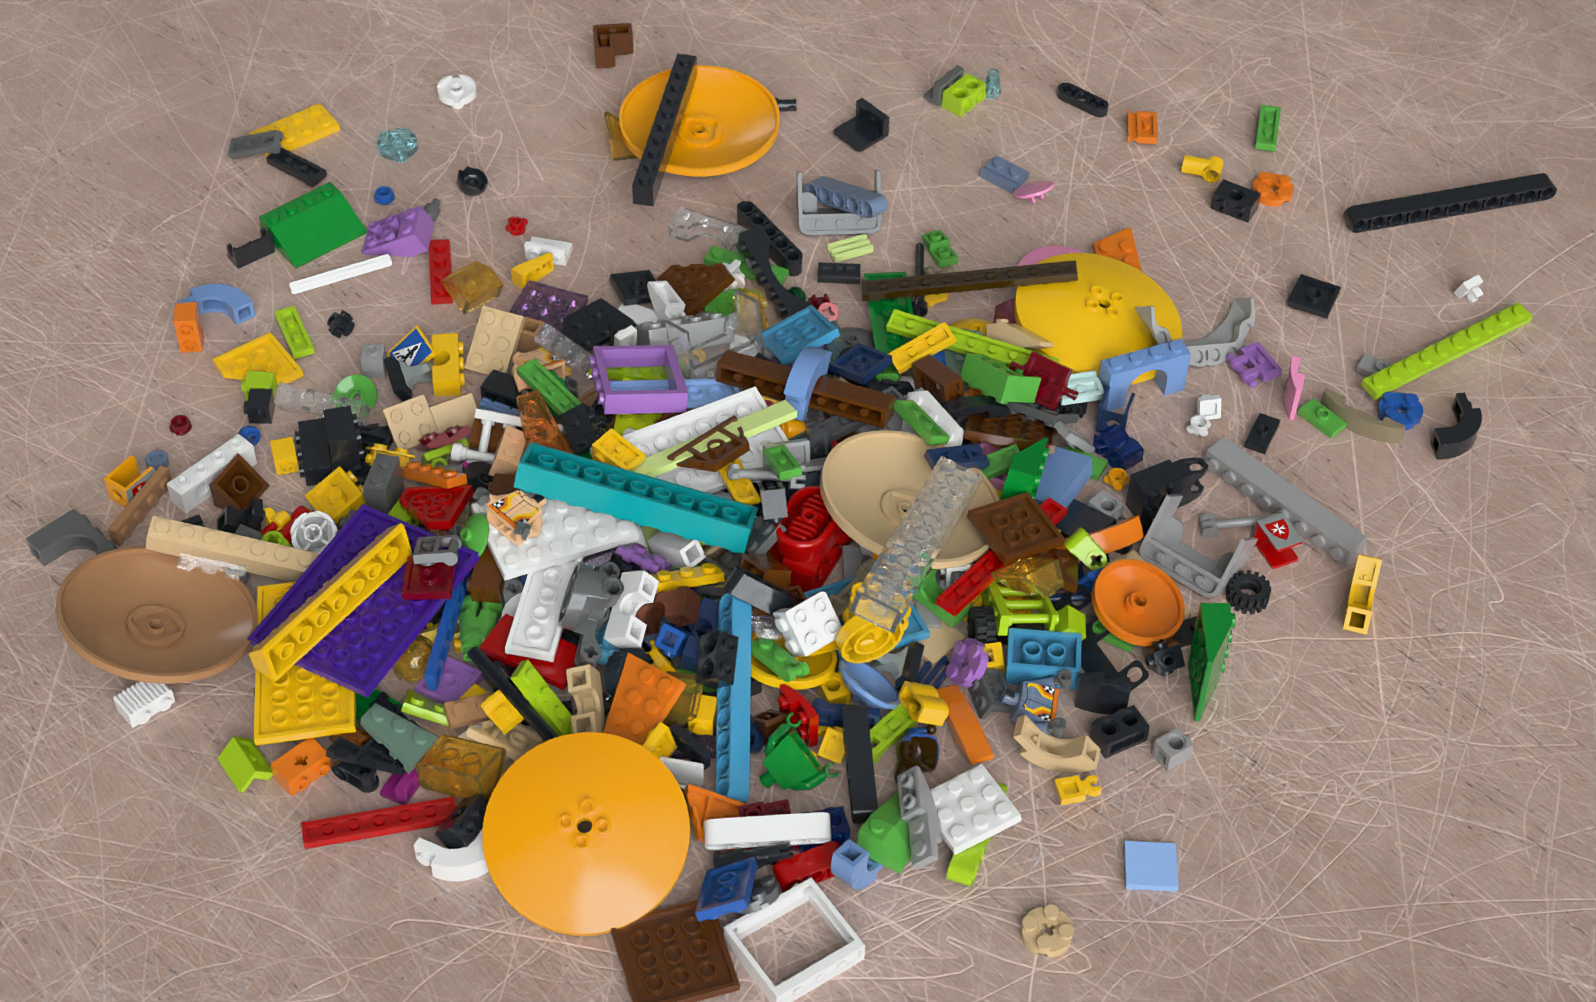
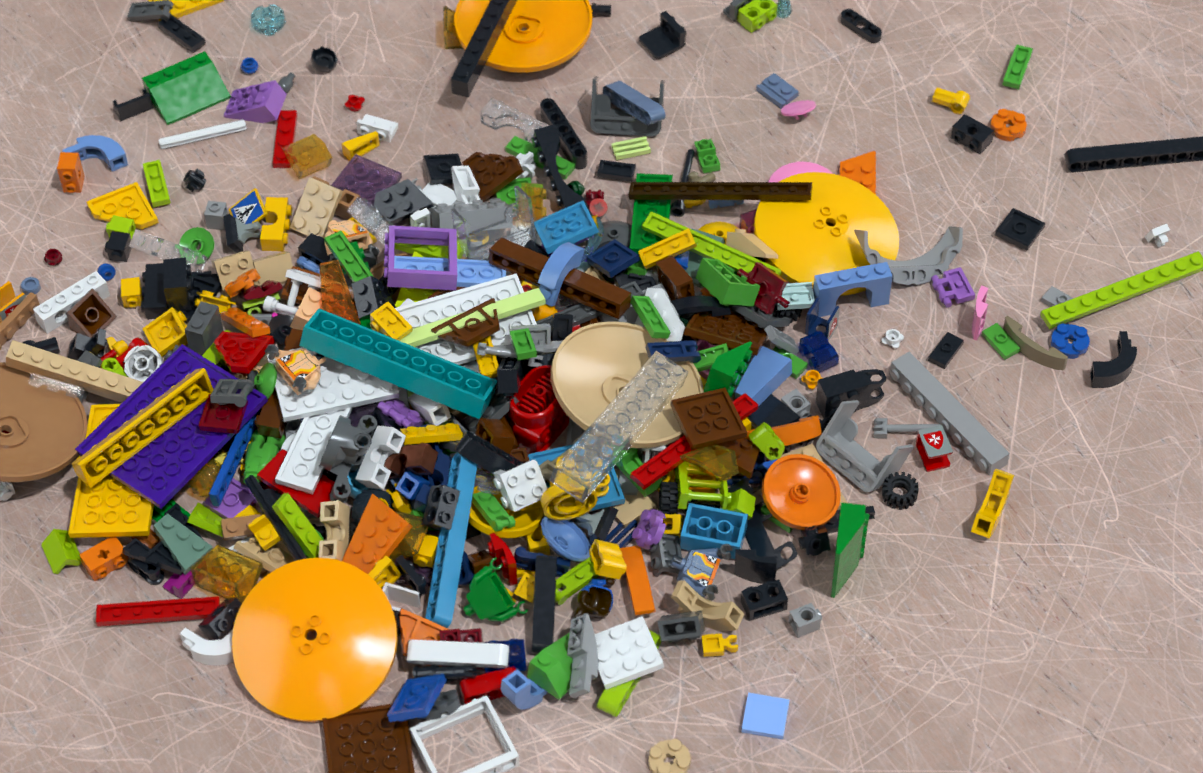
camera: 10 degrees right, 5 degrees up
(425, 427) = (244, 281): none -> orange plate
(971, 296) = (724, 203): none -> medium blue axle
(1030, 770) = (681, 625): none -> dark grey brick
(1142, 127) = (906, 56): orange plate -> none
(1209, 406) = (904, 322): white tile -> none

